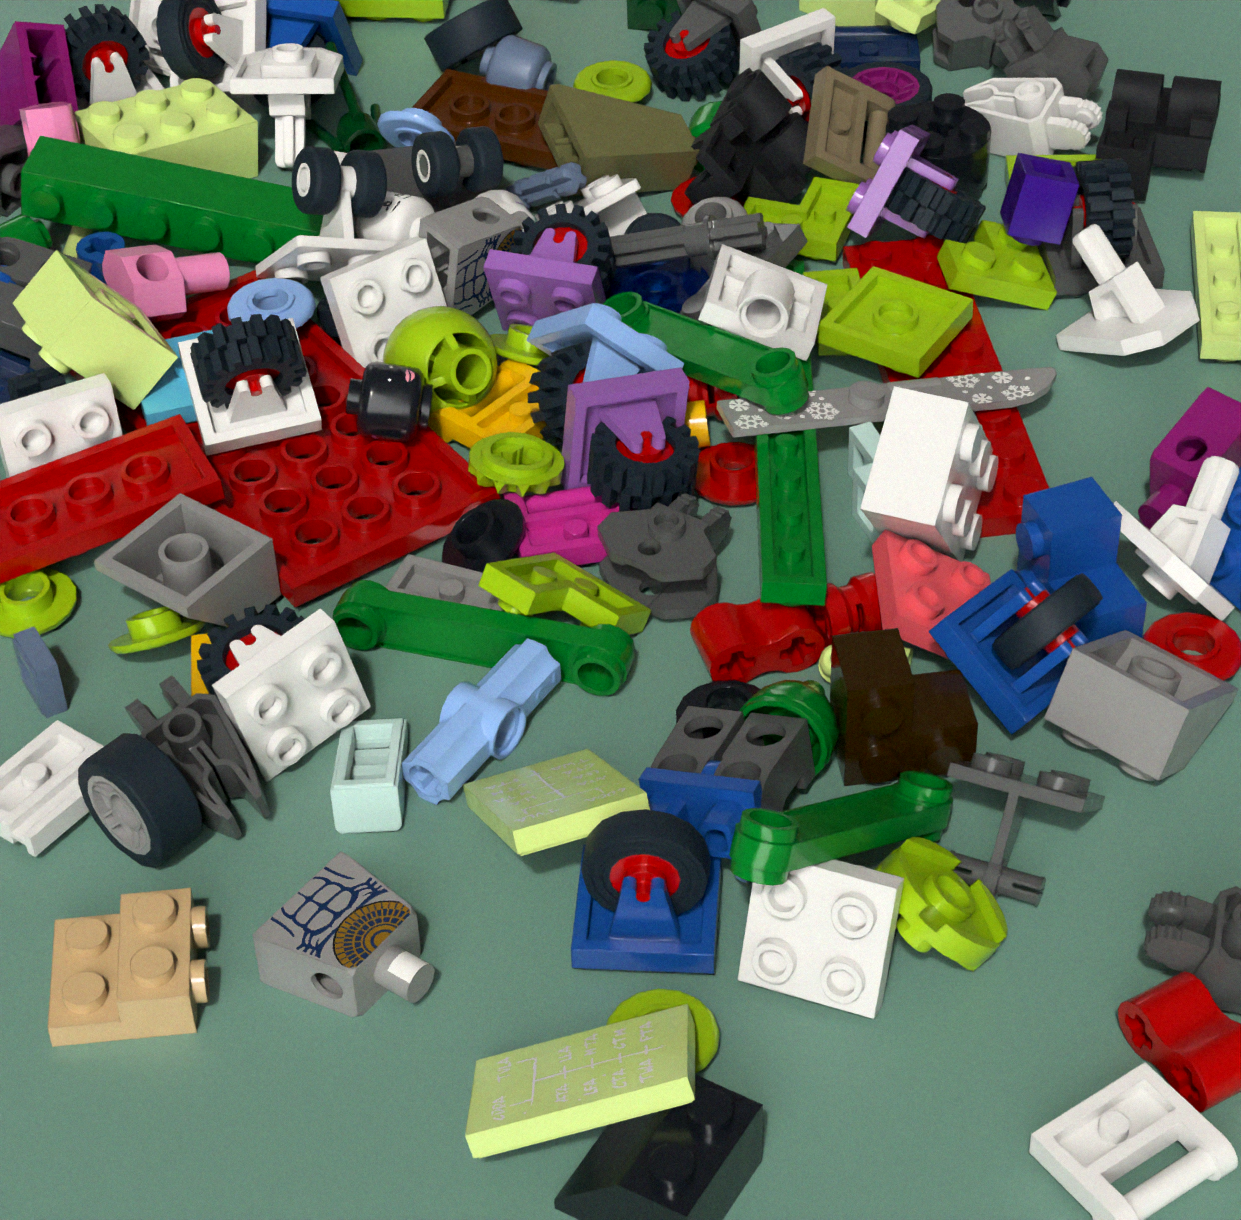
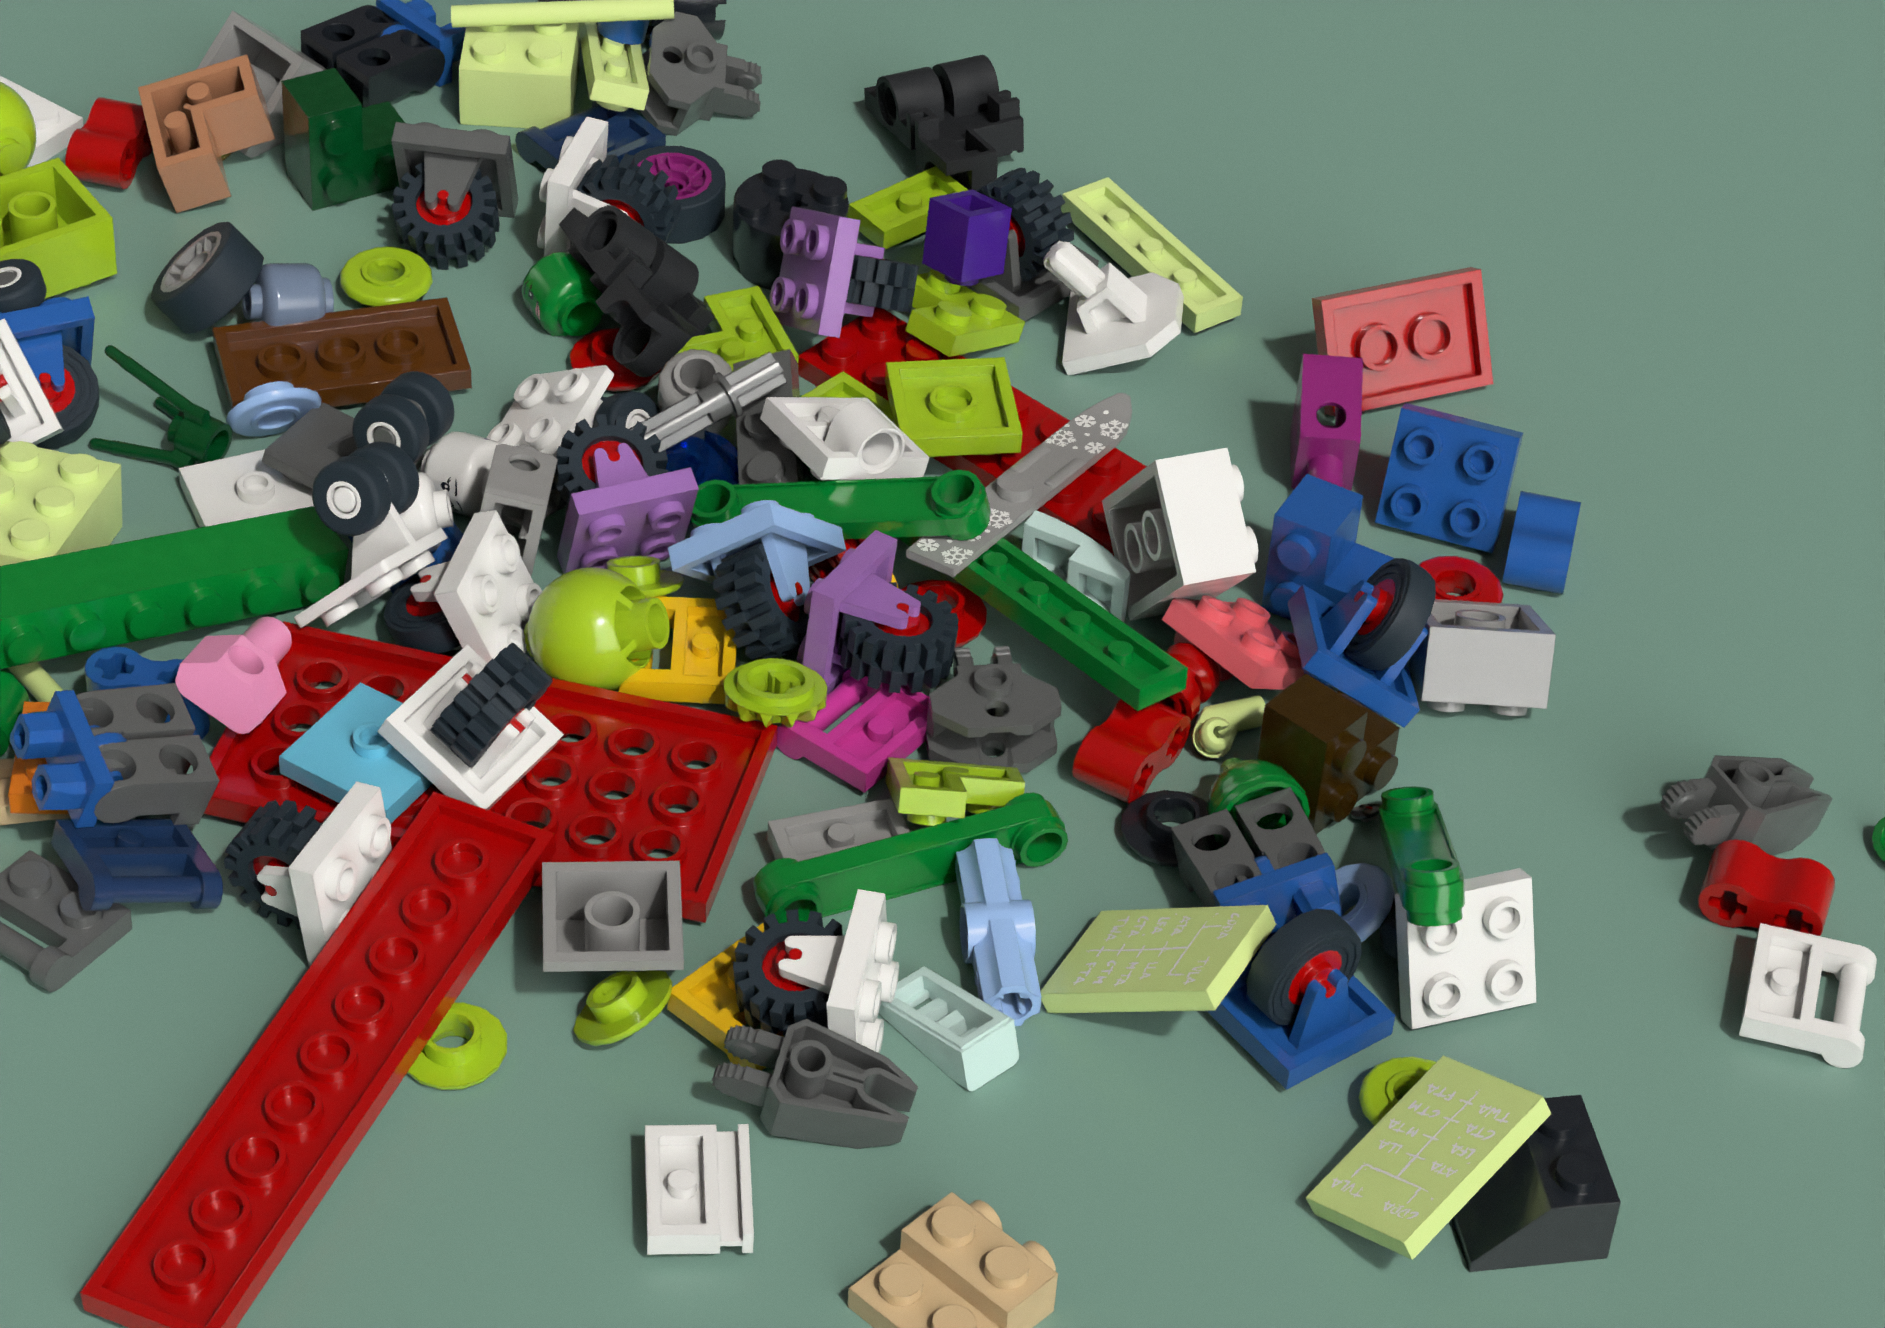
camera: 45 degrees left, 0 degrees up
(39, 672) = (568, 1095): sand blue tile -> none
(92, 330) = (280, 746): yellowish green brick -> none
(140, 799) = (822, 1146): black wheel -> none
(274, 297) = (367, 632): light blue piece -> none
(289, 78) = (117, 406): white piece -> none
(343, 942) = (1111, 1165): light grey torso -> none
(390, 401) = (610, 686): black head -> none
(501, 532) = (832, 788): black piece -> none
(549, 185) = (484, 404): sand blue axle -> none
(617, 138) = (493, 337): olive slope -> none
(838, 124) = (706, 235): dark tan plate -> none
(941, 907) = (1550, 895): lime plate -> none
(1007, 775) = (1487, 760): dark grey plate -> none
(1032, 115) = (840, 148): white hinge -> none
(1049, 53) = (810, 101): dark grey hinge -> none
(1188, 539) = (1393, 500): white piece -> none

